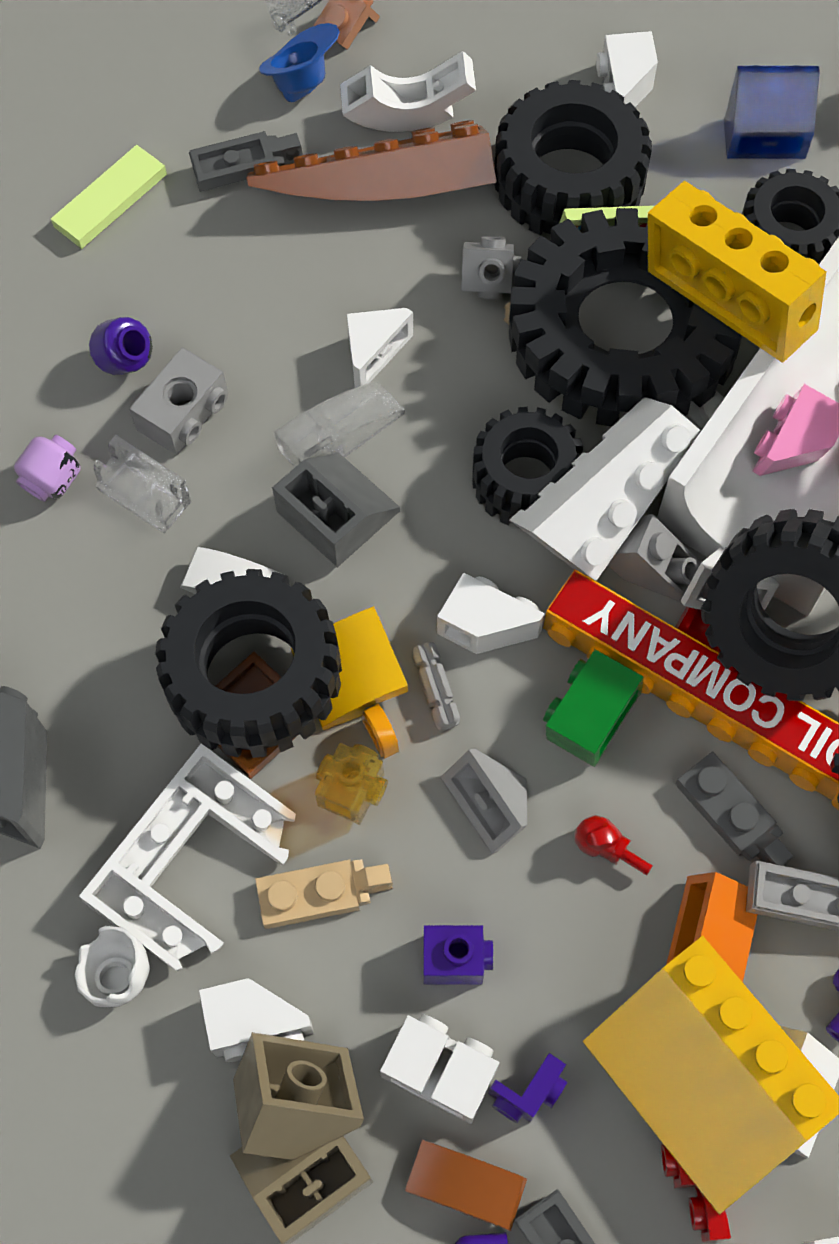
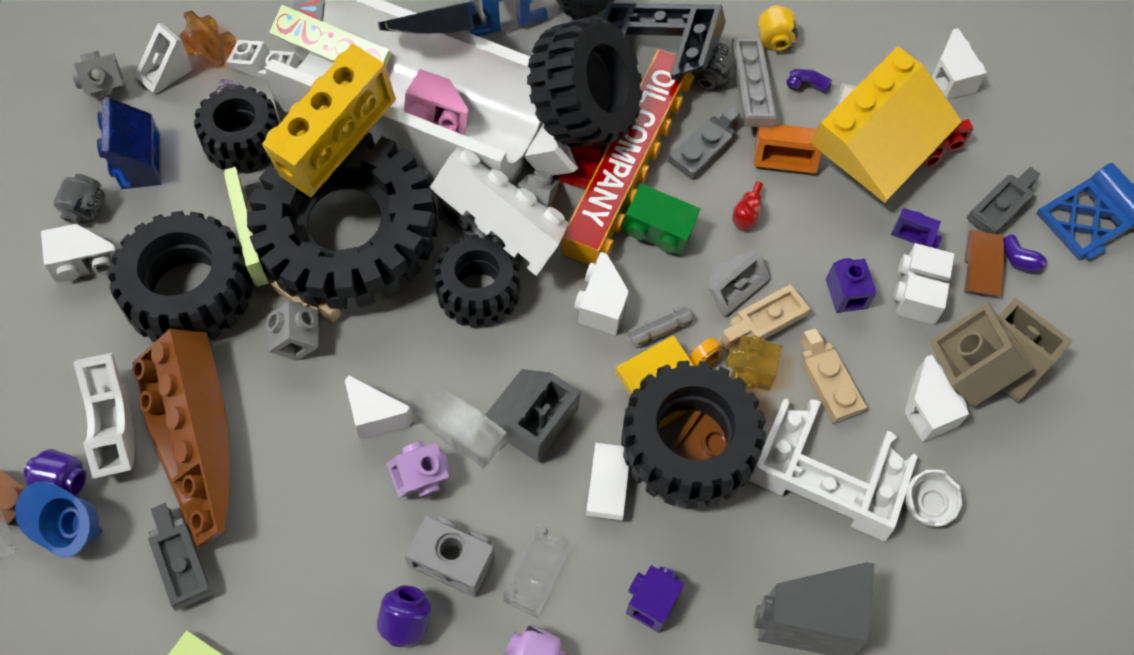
camera: 105 degrees left, 5 degrees down
(77, 601) = (654, 596): none -> dark purple brick
(284, 376) = (418, 469): none -> lavender brick
(352, 53) = (57, 469): none -> dark purple head
(423, 825) = (766, 316): none -> tan hinge
(702, 73) = (79, 199): none -> dark grey head

